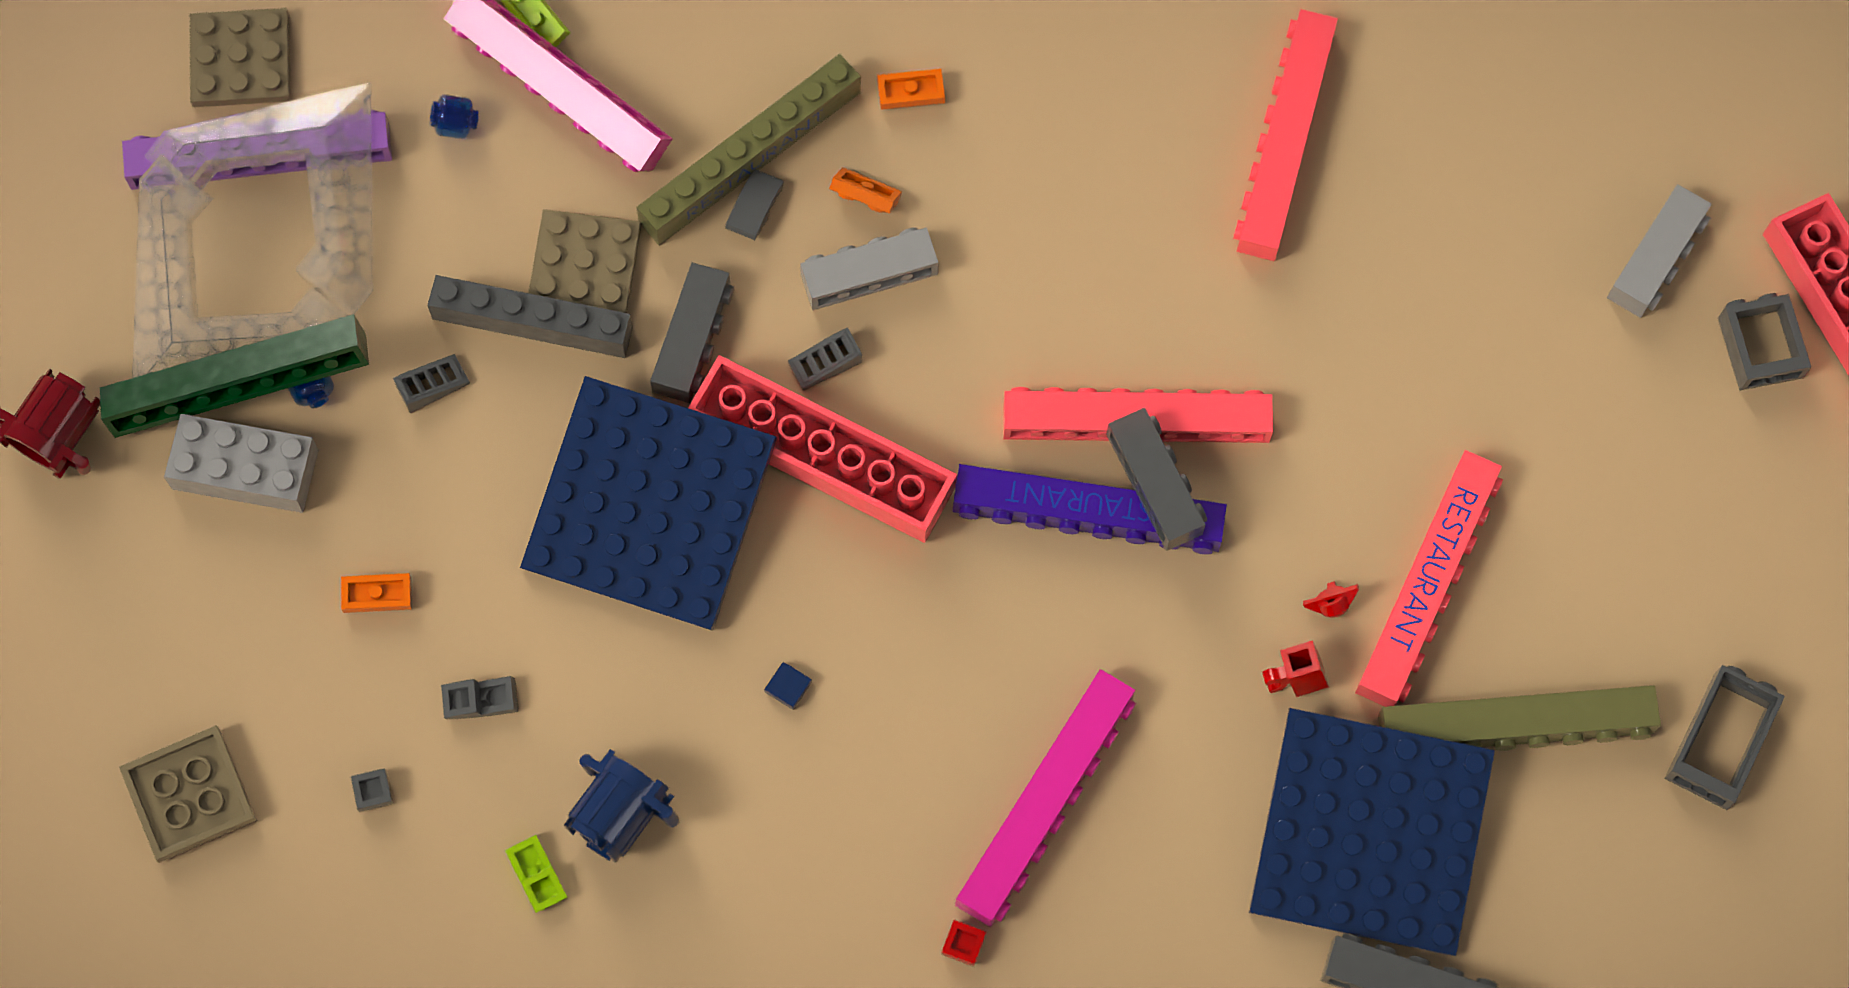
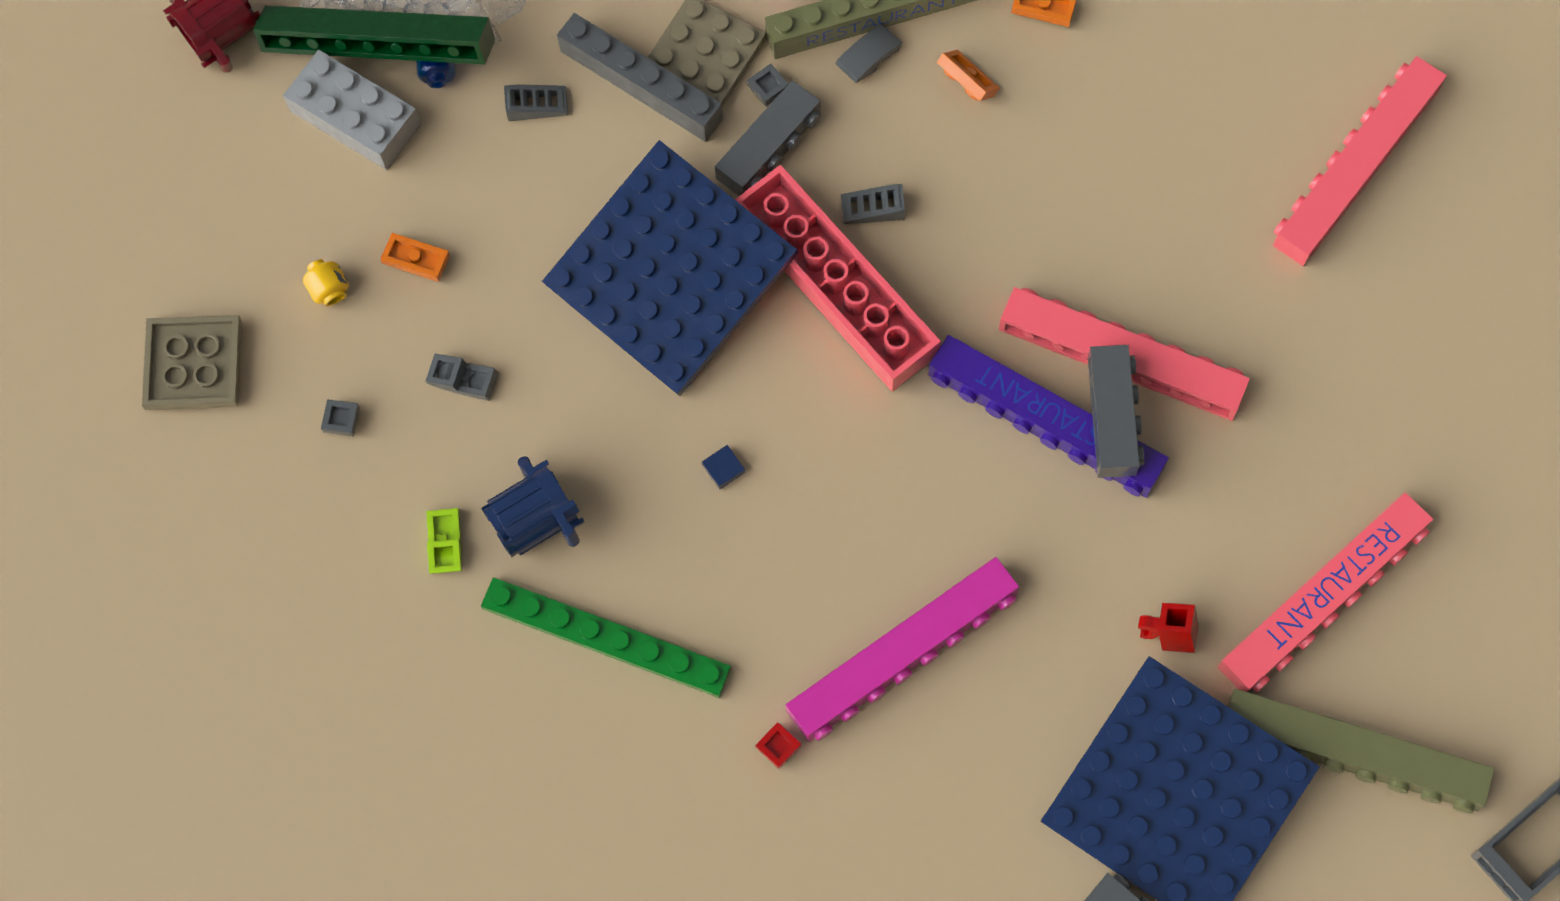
camera: 30 degrees right, 0 degrees up
(294, 655) = (326, 282): none -> yellow head
(665, 275) = (767, 84): none -> dark grey plate
(742, 905) = (606, 637): none -> green plate
(869, 268) = (943, 141): light grey brick -> none
(1333, 600) = (1230, 579): red piece -> none

